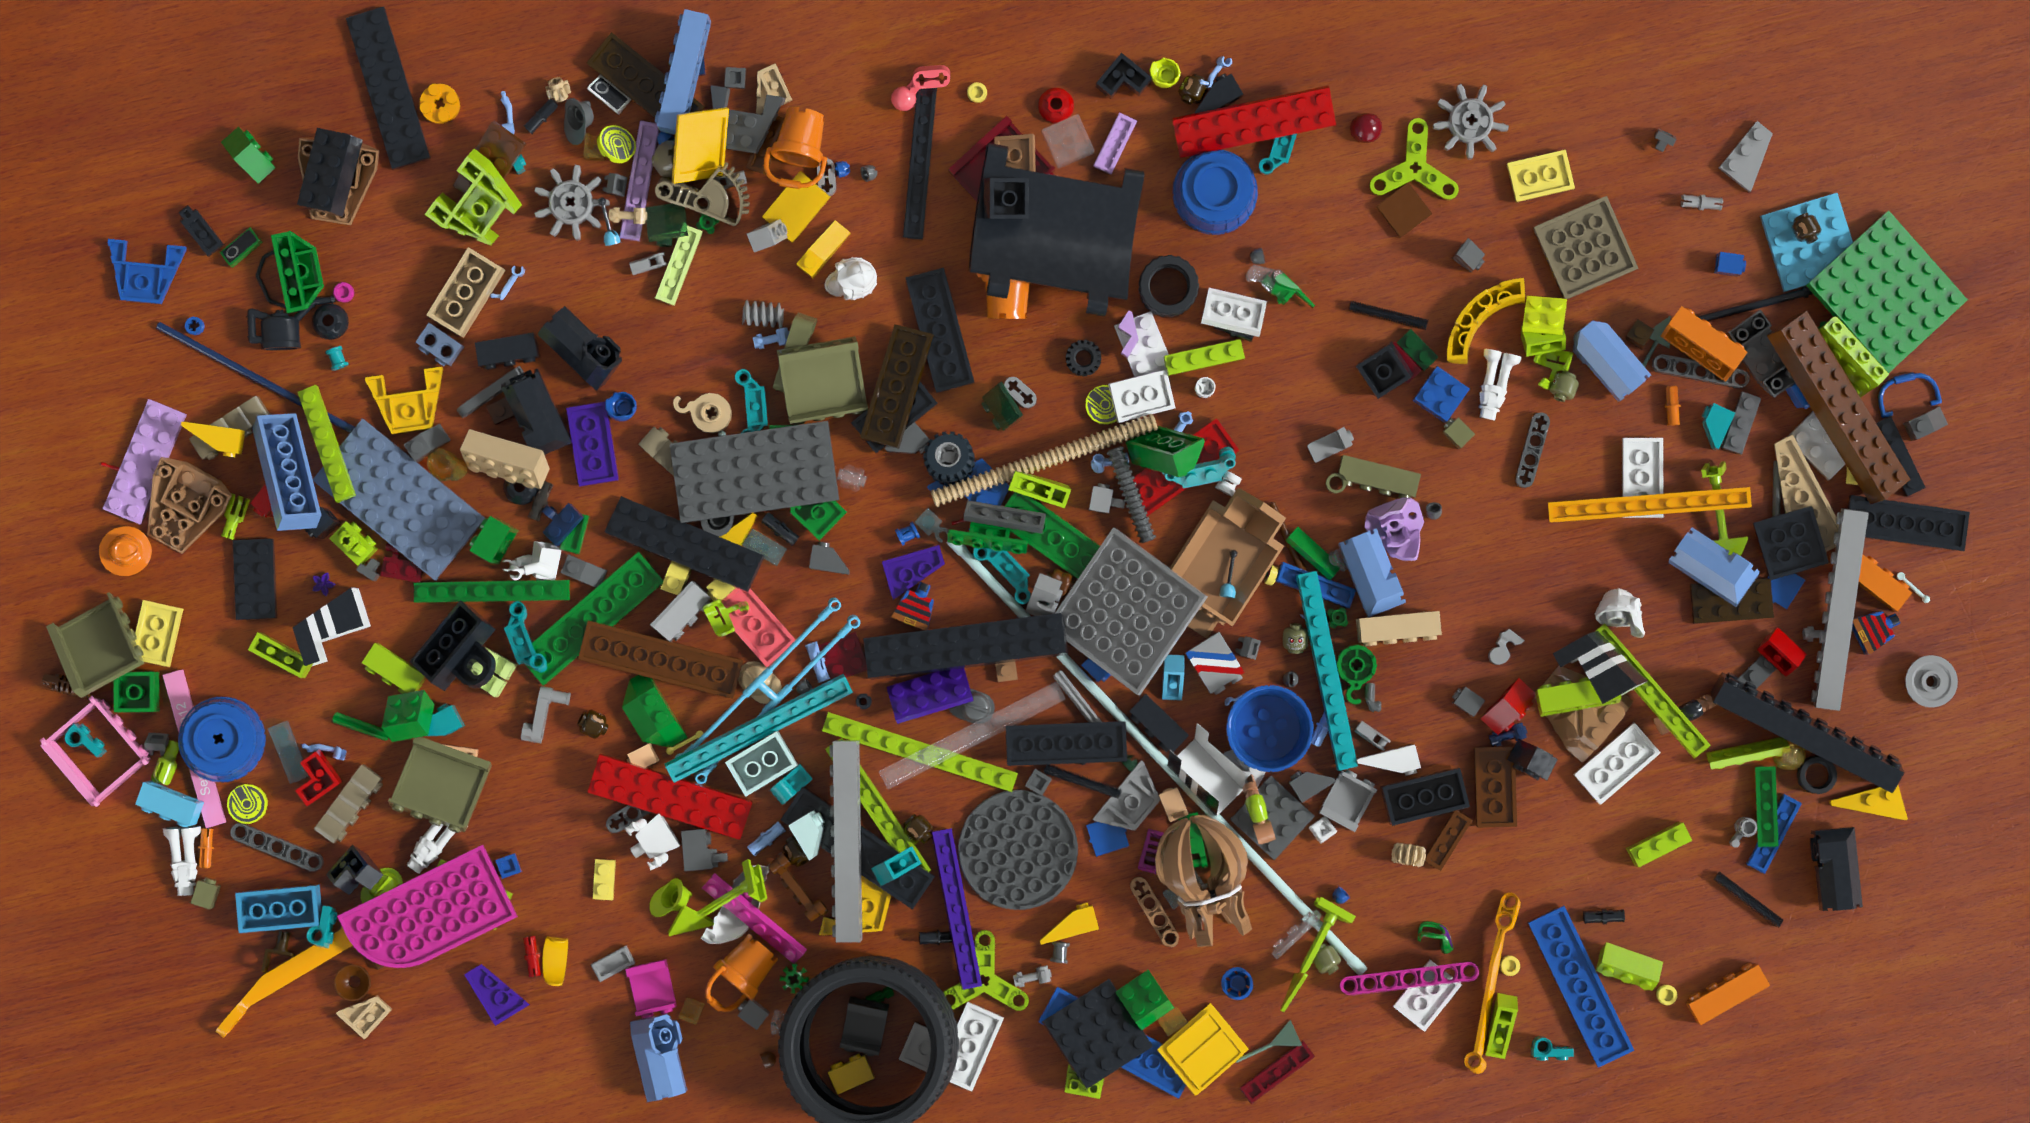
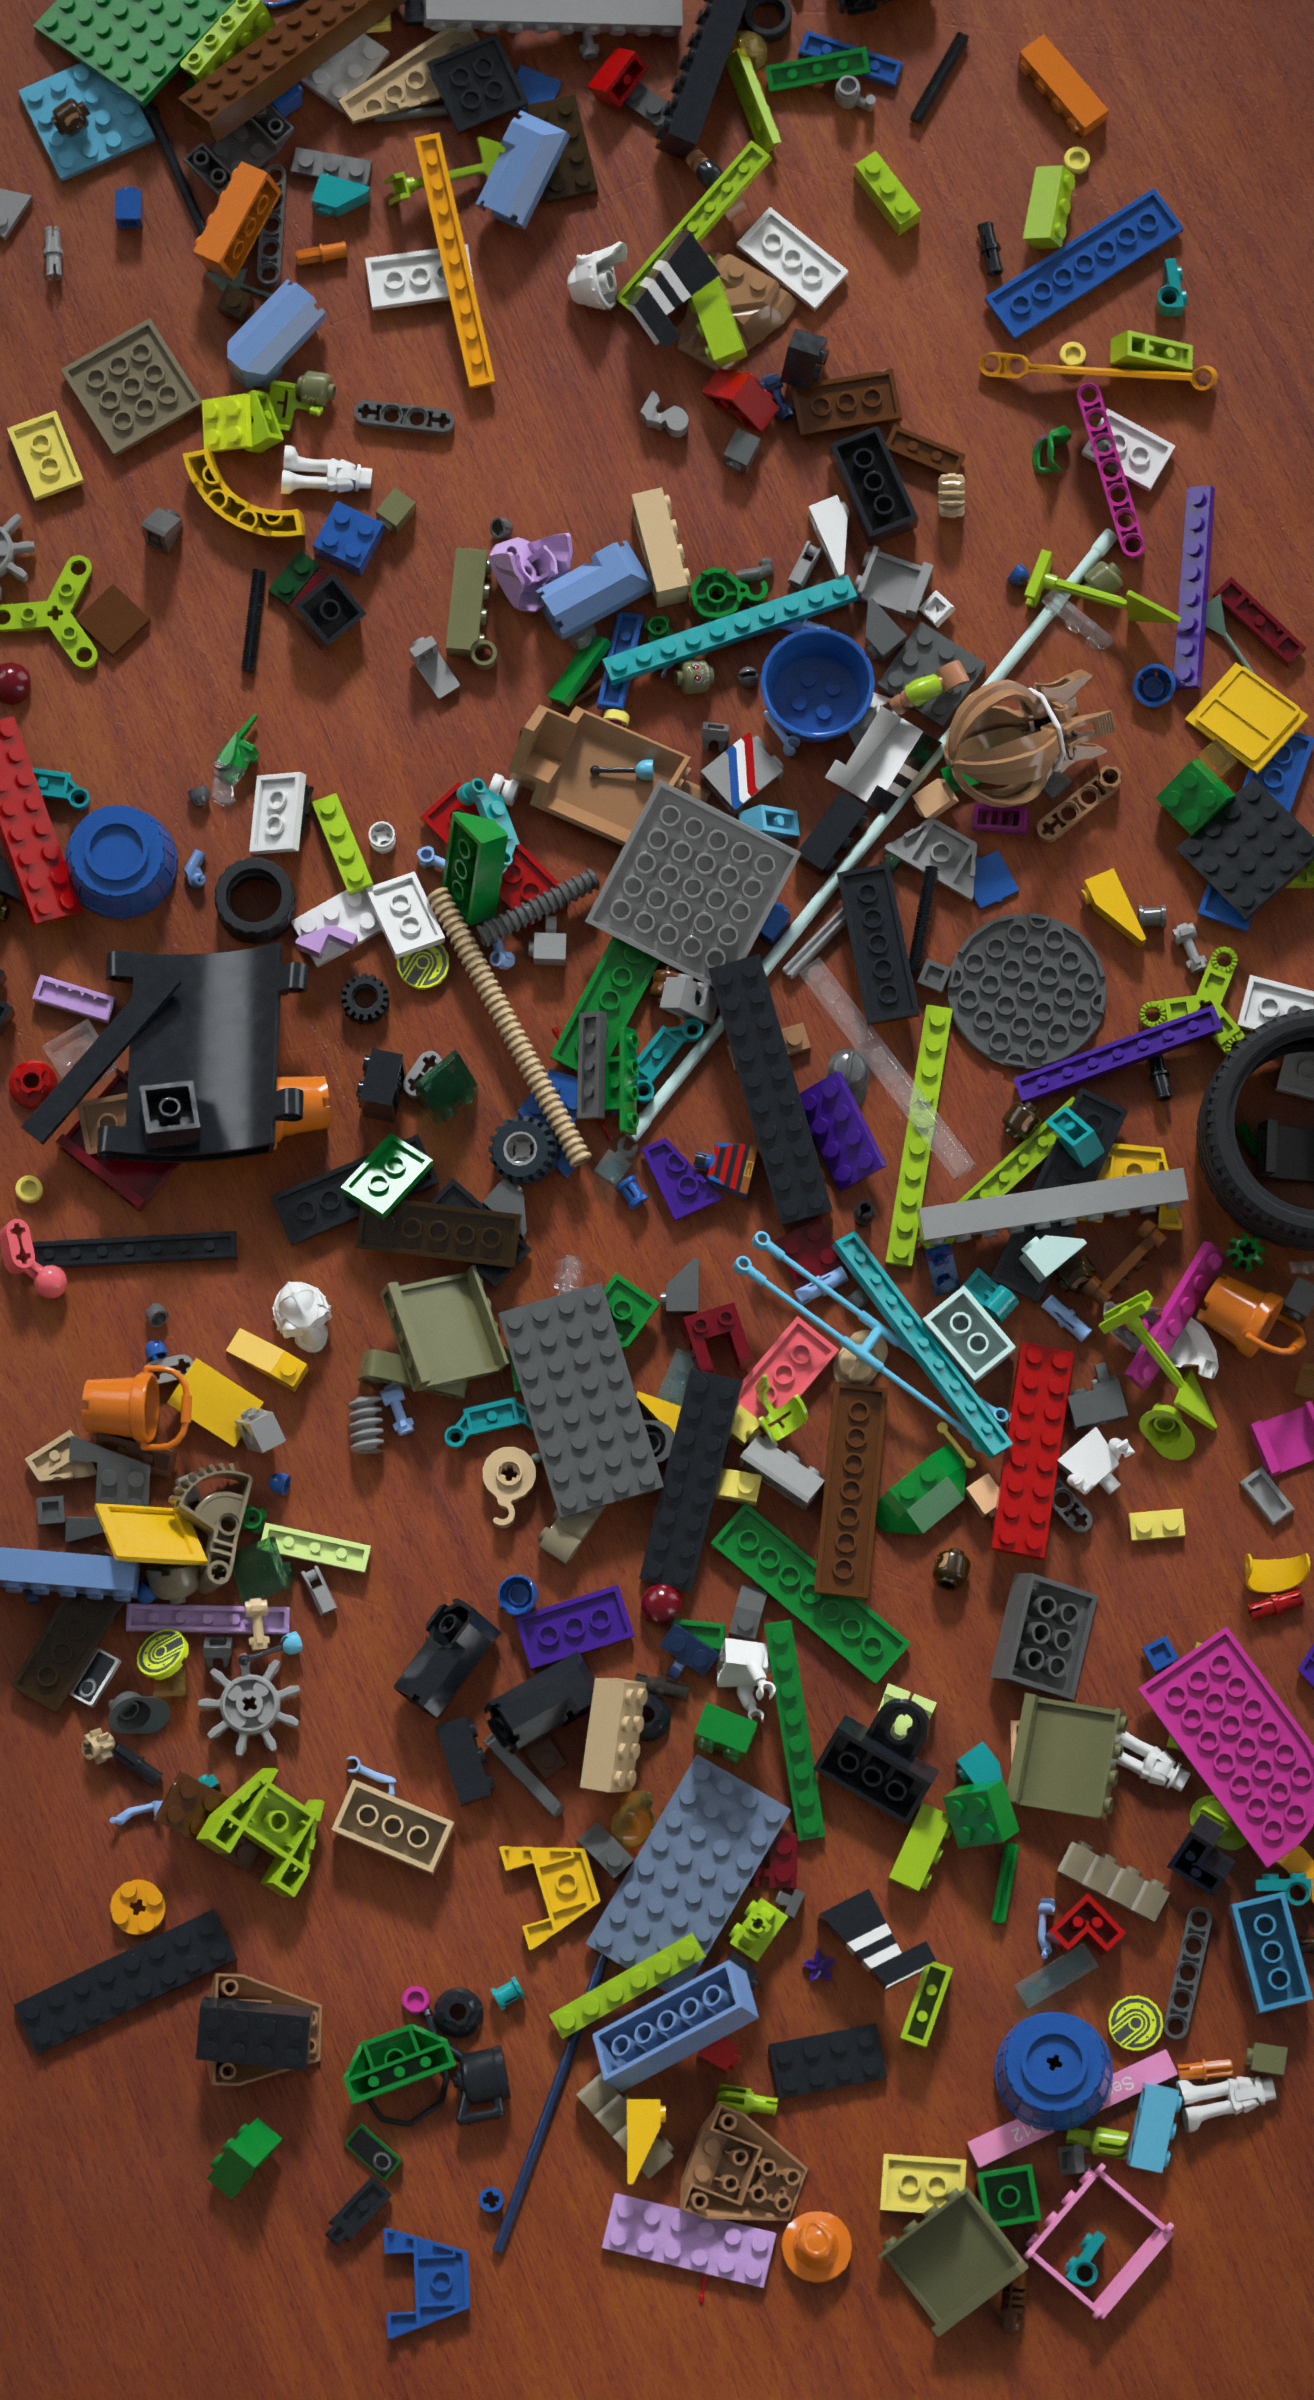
camera: 105 degrees left, 10 degrees down
(441, 341) = (463, 1852): sand blue brick -> none
(520, 640) = (856, 1679): teal plate -> none
(534, 783) = (1043, 1635): none -> dark grey slope
(535, 731) = (974, 1645): light grey beam -> none
(599, 509) = (661, 1604): none -> dark red hair
(730, 246) = (280, 1483): none -> blue hinge
(780, 529) = (651, 1361): black pin -> none
(797, 578) = (711, 1324): none -> dark red brick
(813, 752) = (942, 1269): none -> clear blue plate
(941, 353) = (386, 1176): none -> plate
(1010, 359) = (382, 1085): none -> black brick
(1040, 488) = (547, 1023): lime slope -> none
(1063, 156) = (101, 1055): none -> black tile
(1201, 244) = (193, 871): none -> medium blue arm
(1311, 1027) = (1194, 587): none -> dark purple plate

